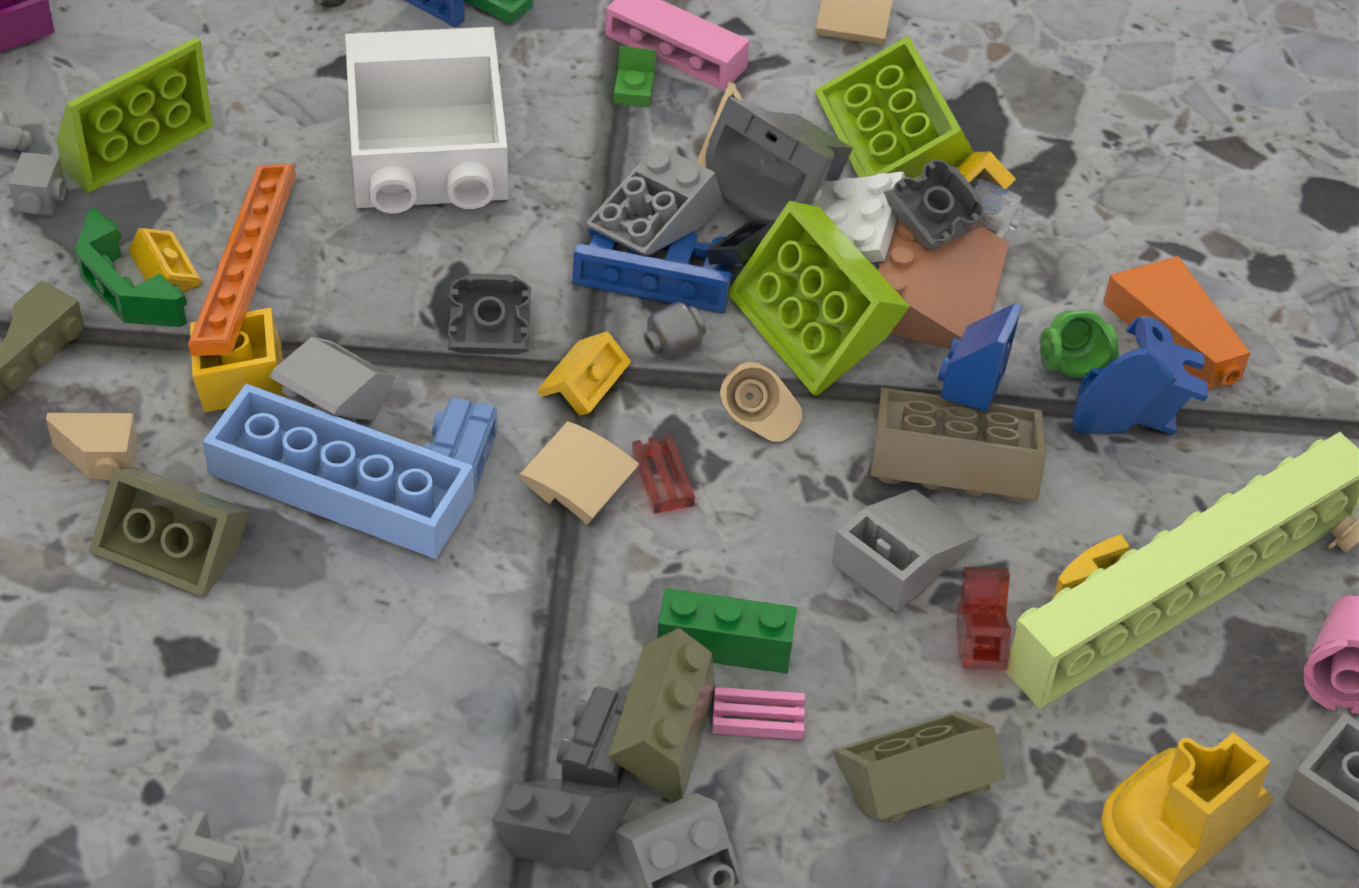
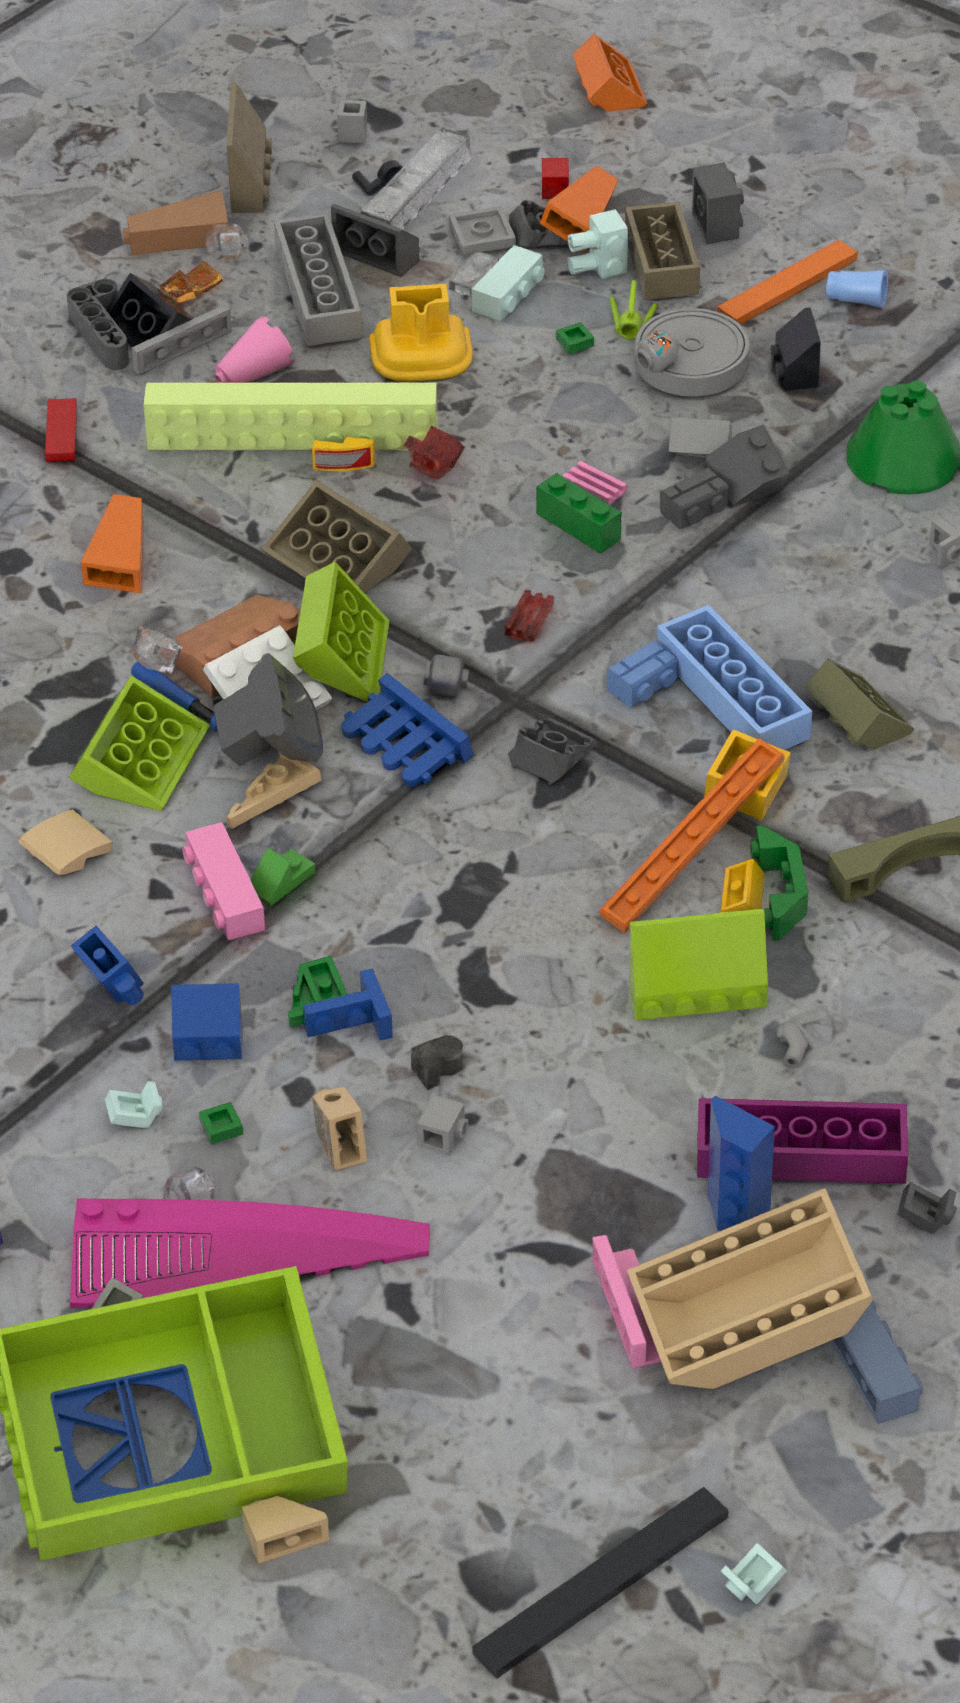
camera: 140 degrees left, 5 degrees down
(37, 184) = (798, 979): light grey brick -> none
(95, 441) = (870, 775): tan slope -> none
(334, 380) = (697, 726): light grey slope -> none
(426, 118) = (481, 879): white brick -> none
(578, 471) = (583, 631): tan slope -> none
(587, 372) = (526, 689): yellow panel -> none
(658, 202) = (375, 754): light grey slope -> none
(665, 713) = (655, 471): olive slope -> none
(740, 245) = (345, 698): black plate -> none
(773, 408) = (436, 619): tan cap -> none
(900, 546) = (434, 505): light grey slope -> none
(921, 765) = (535, 420): olive slope -> none
(937, 204) = (210, 633): dark grey slope -> none
(979, 359) = (278, 557): blue slope -> none
(987, 167) = (146, 661): yellow panel -> none
(1078, 343) = (205, 556): bright green hair -> none
(1140, 385) = (210, 491): blue piece -> none

